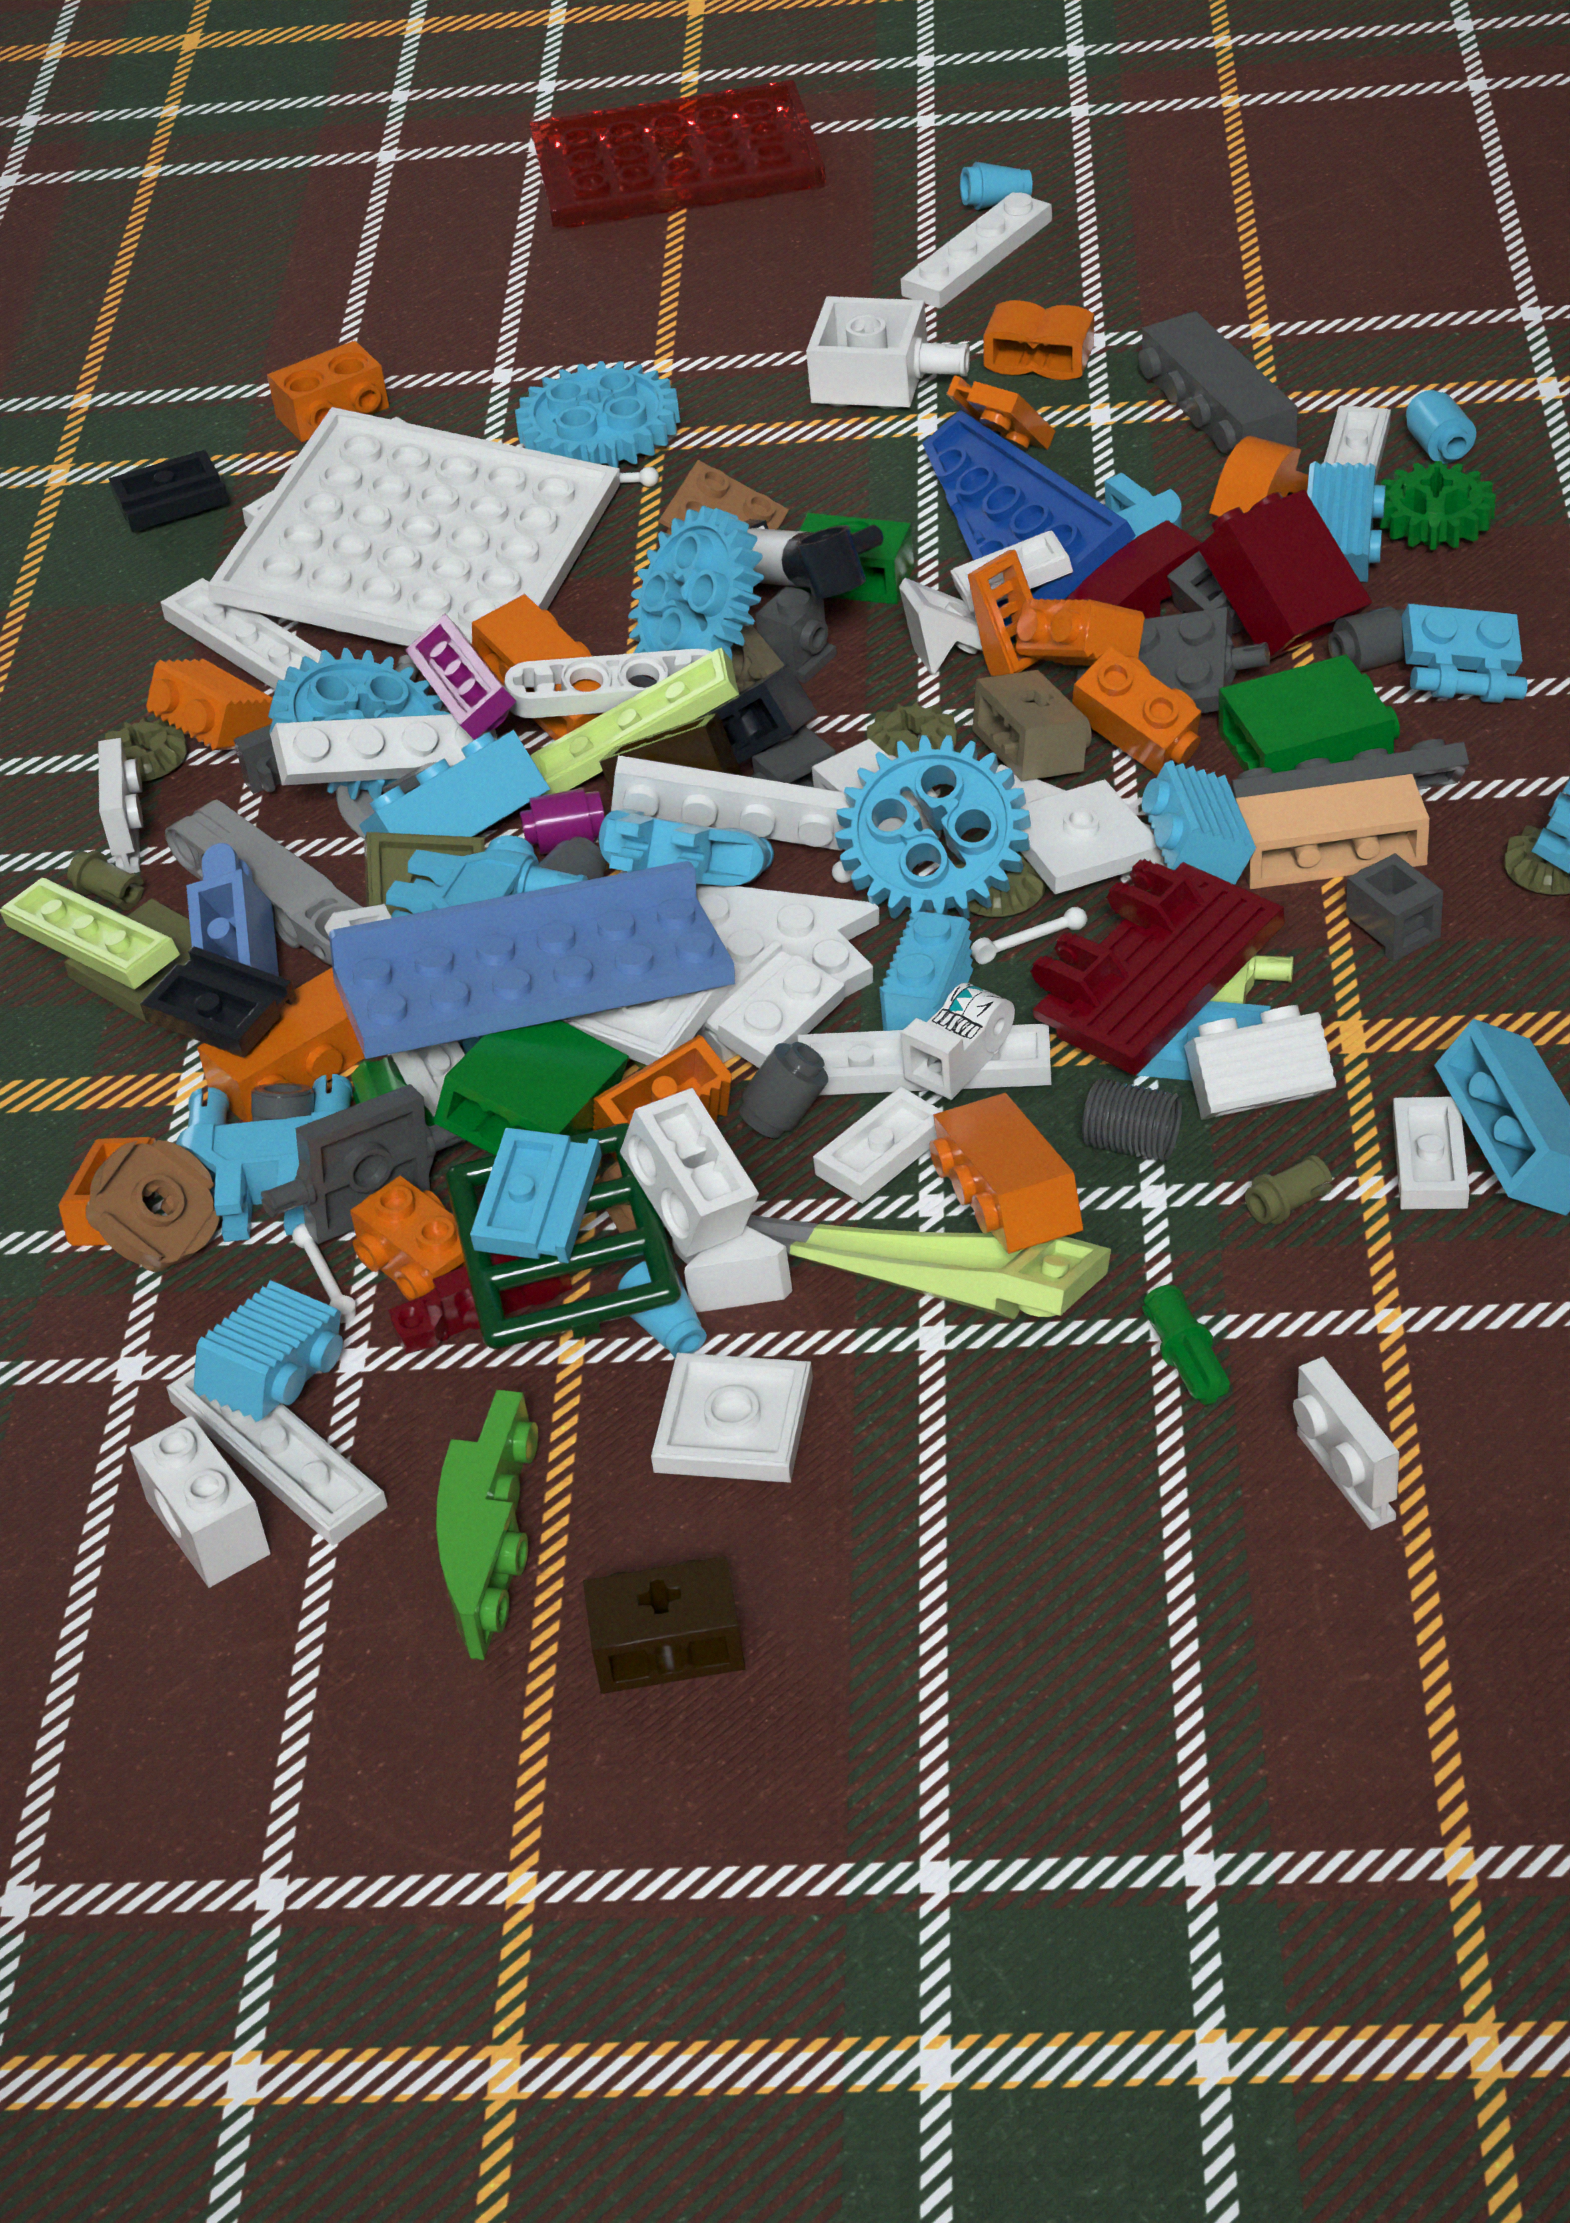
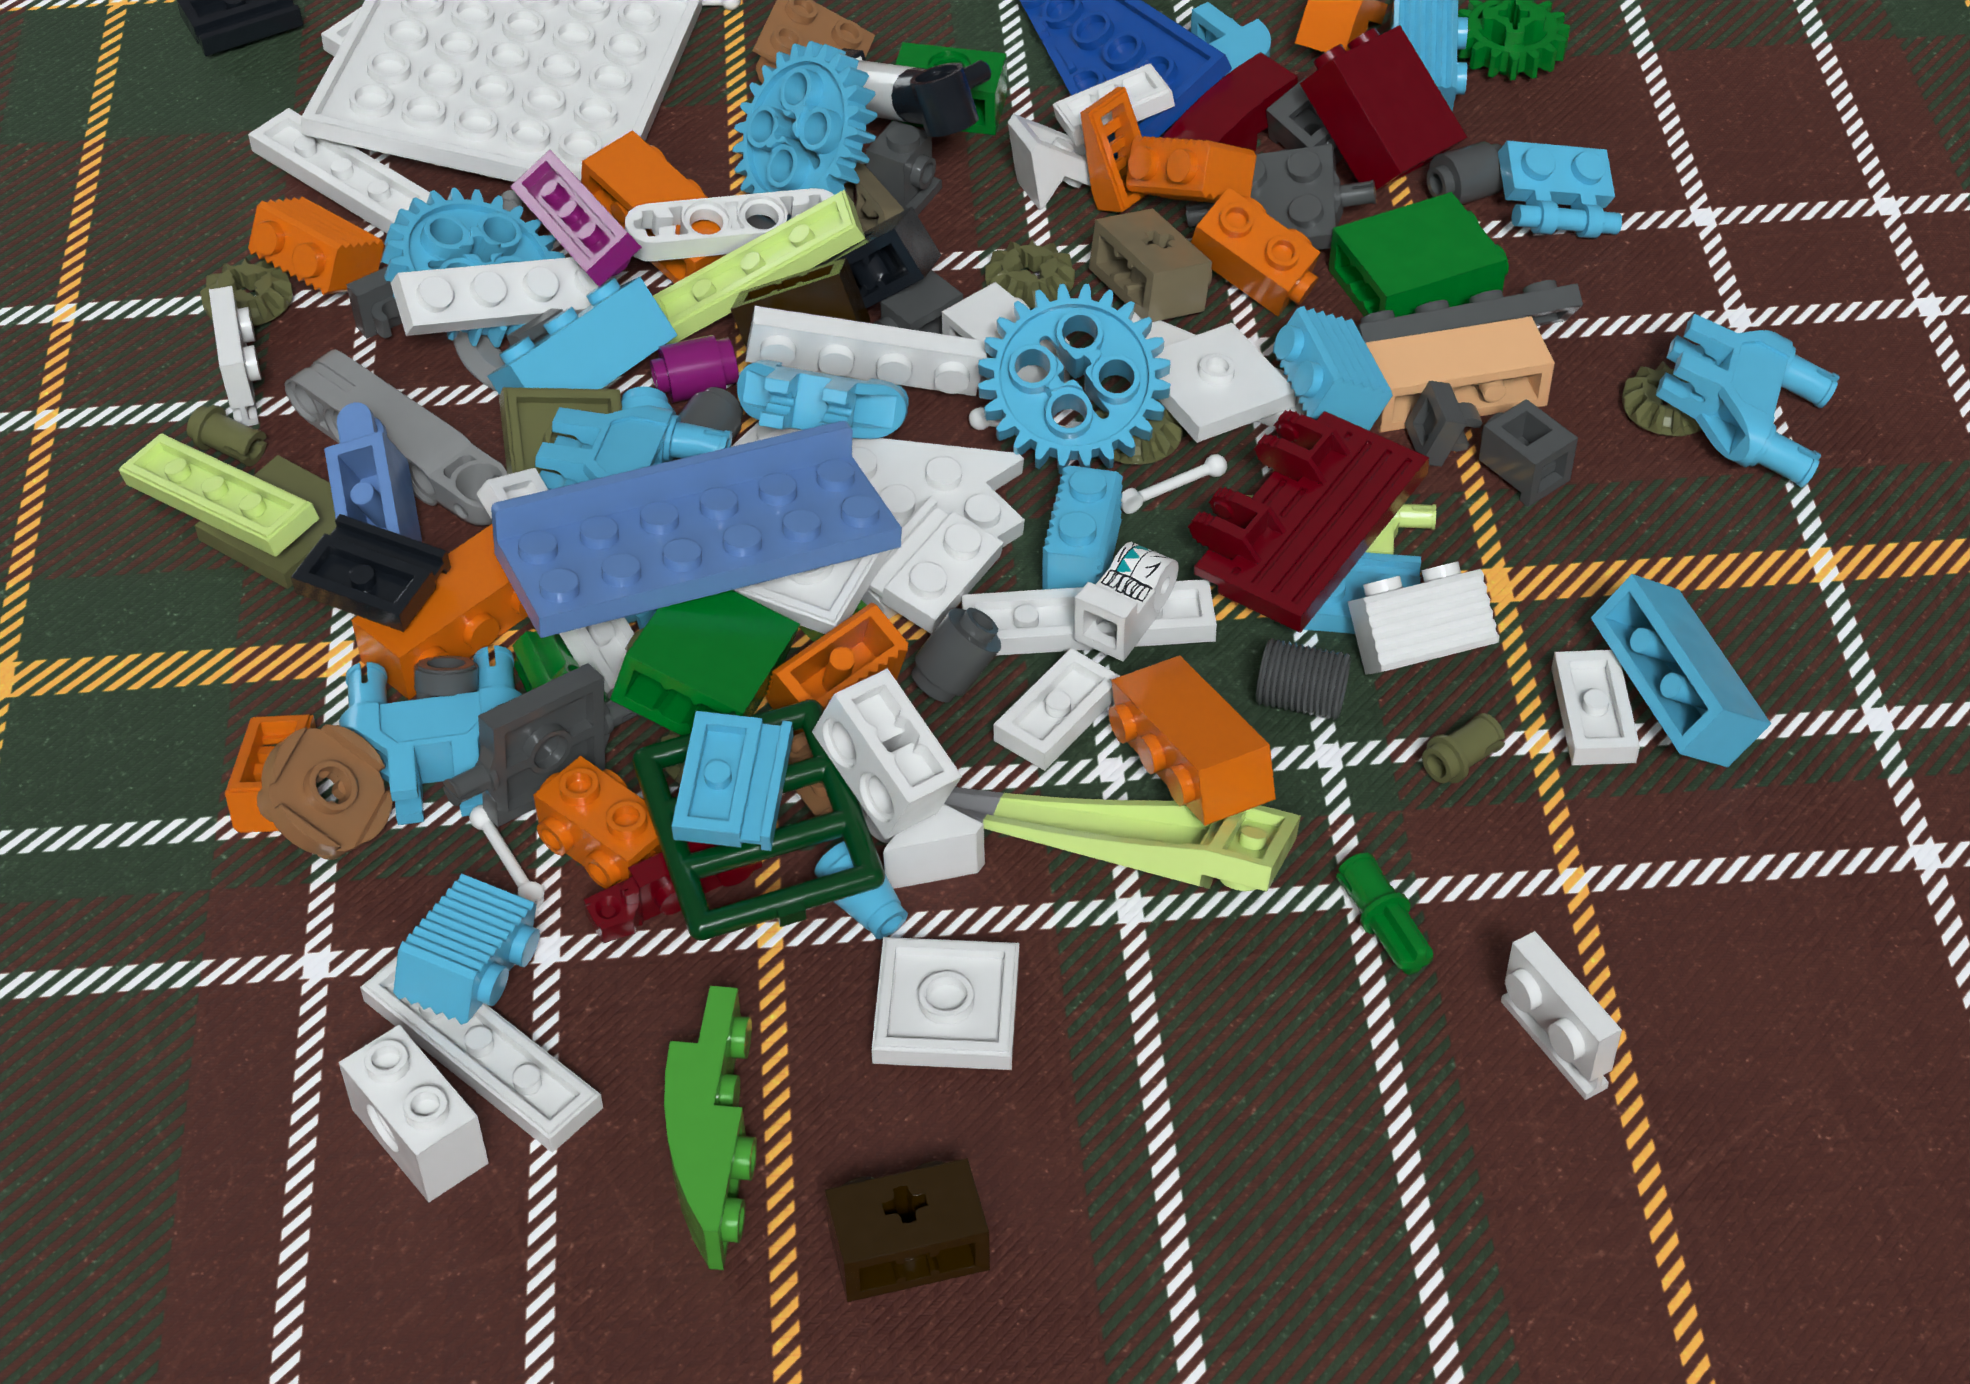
camera: 10 degrees left, 5 degrees up
(1305, 878) = (1439, 422): none -> dark grey tile

